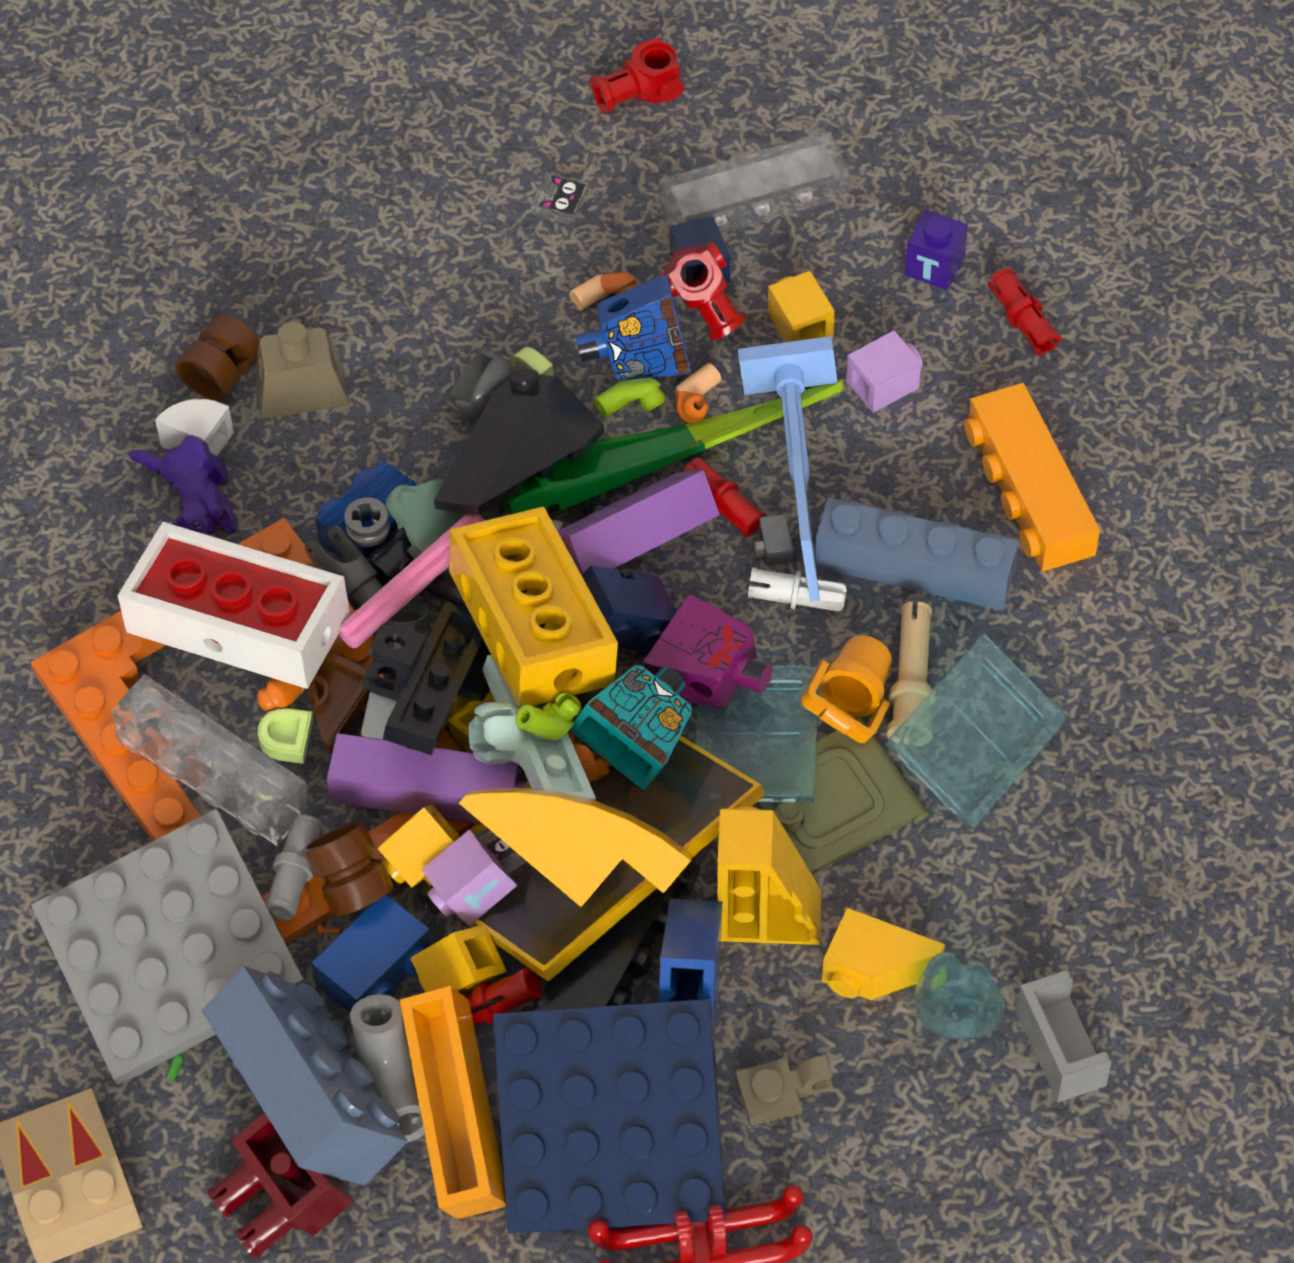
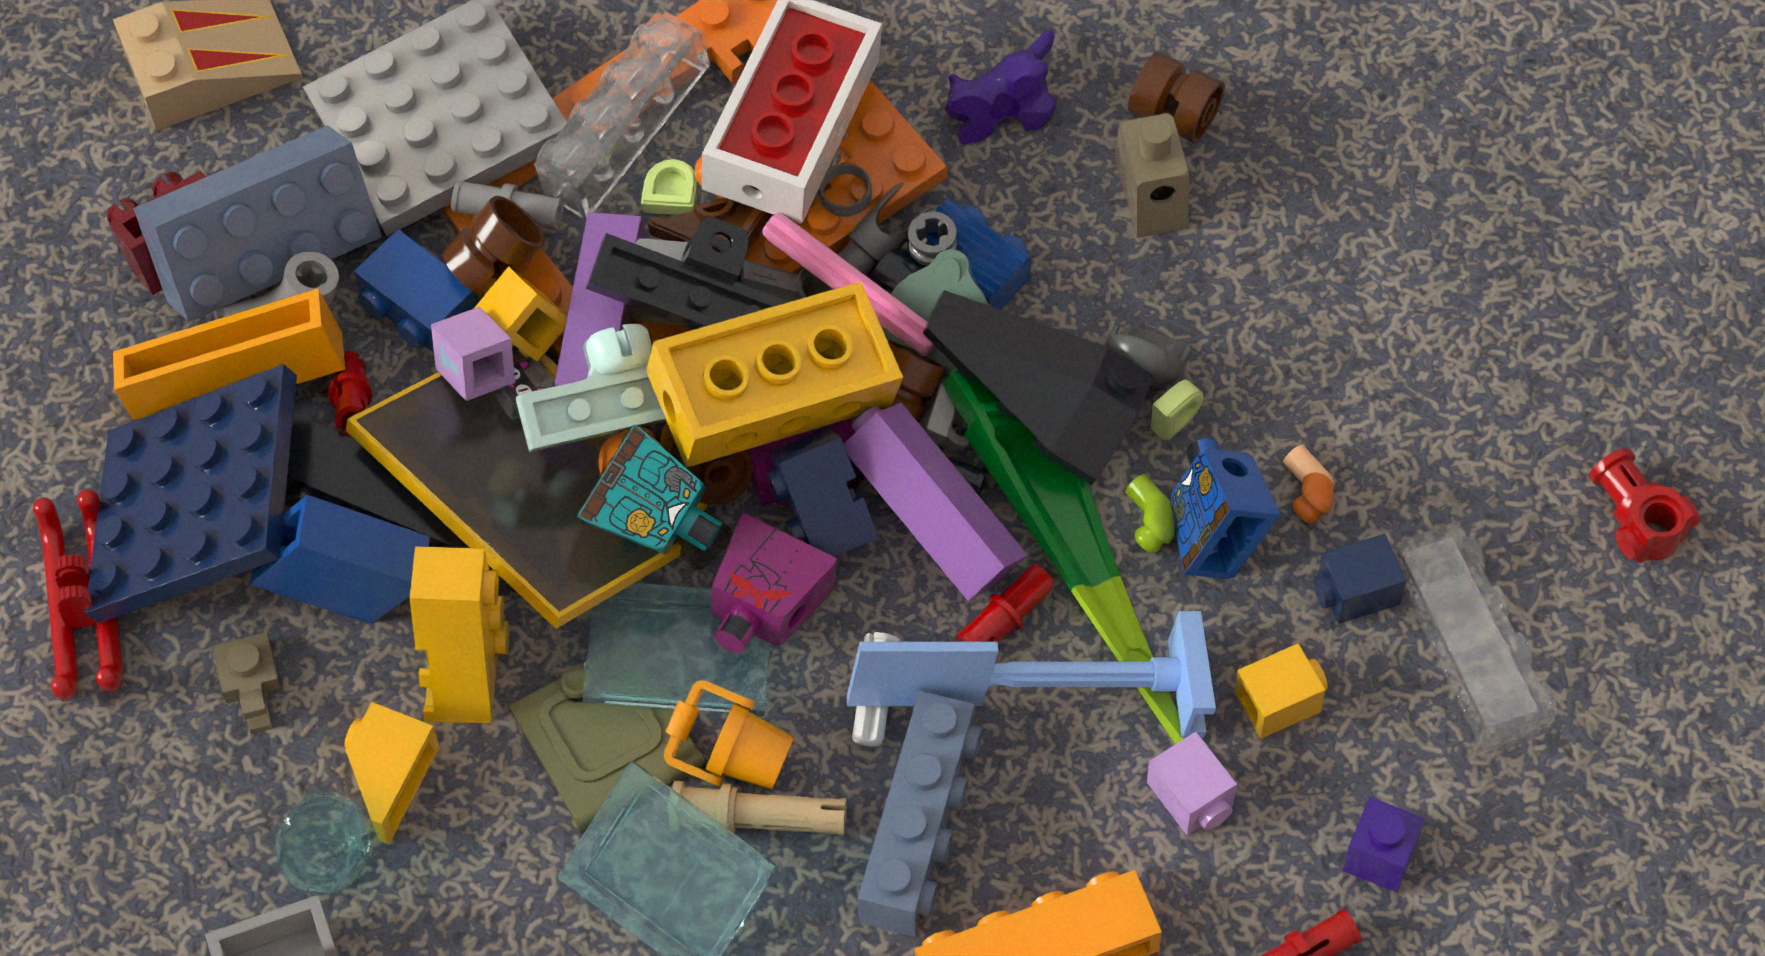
camera: 90 degrees right, 5 degrees up
(198, 418) = (1079, 87): white brick -> none
(459, 961) = (390, 360): yellow brick -> none
(551, 721) = (626, 400): lime arm -> none
(560, 199) = (1449, 433): tile -> none
(576, 838) = (470, 420): yellow slope -> none
(690, 393) = (1156, 579): arm -> none
(705, 289) = (1293, 562): red connector -> none

